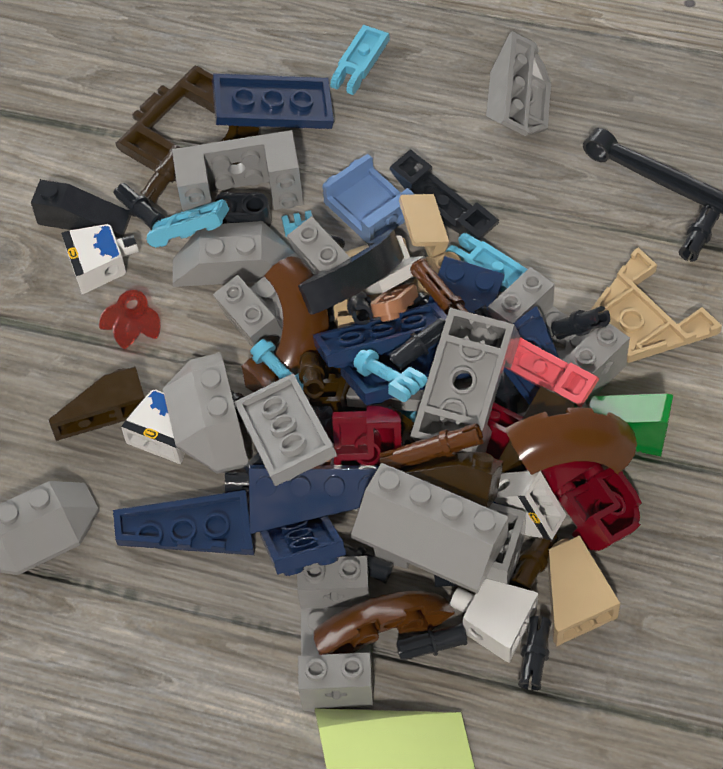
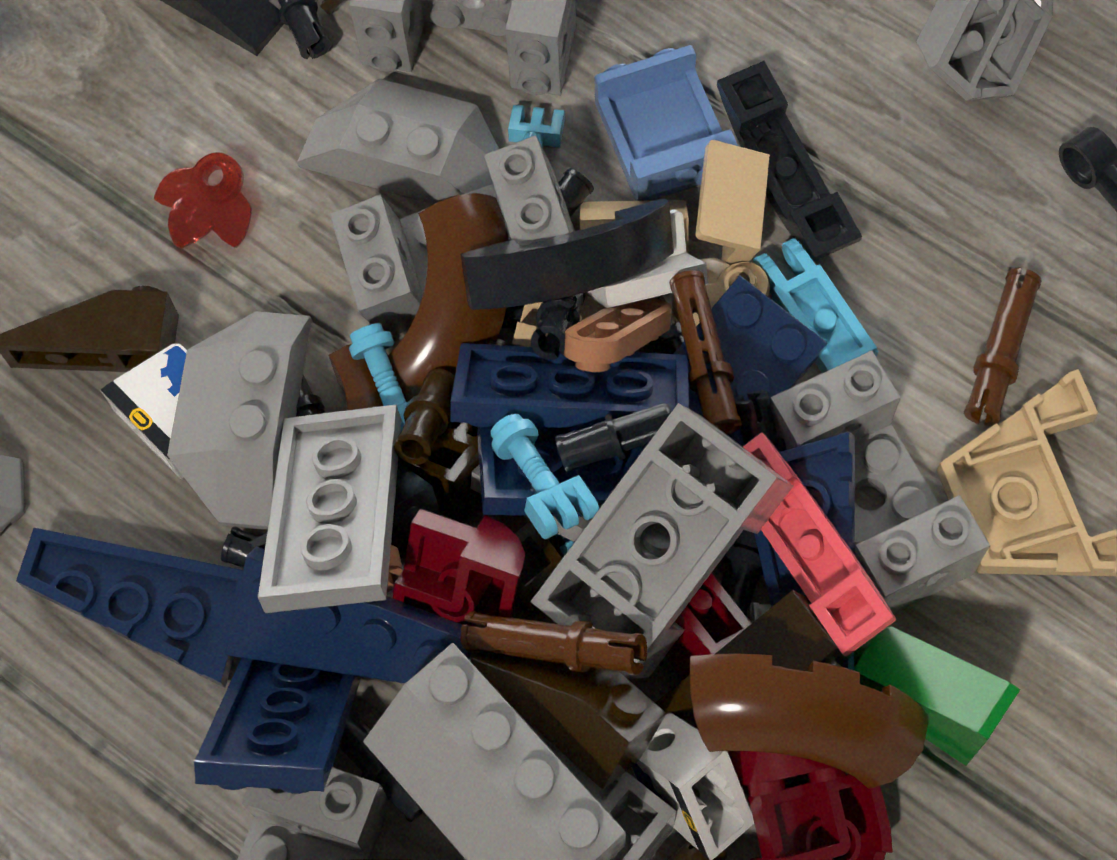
camera: 20 degrees right, 10 degrees up
(97, 255) = (196, 74): white torso -> none
(187, 223) = (355, 69): medium azure hinge -> none
(246, 207) = (451, 72): black piece -> none
(580, 322) = (918, 484): black pin -> none
(595, 259) = (998, 365): none -> reddish brown pin

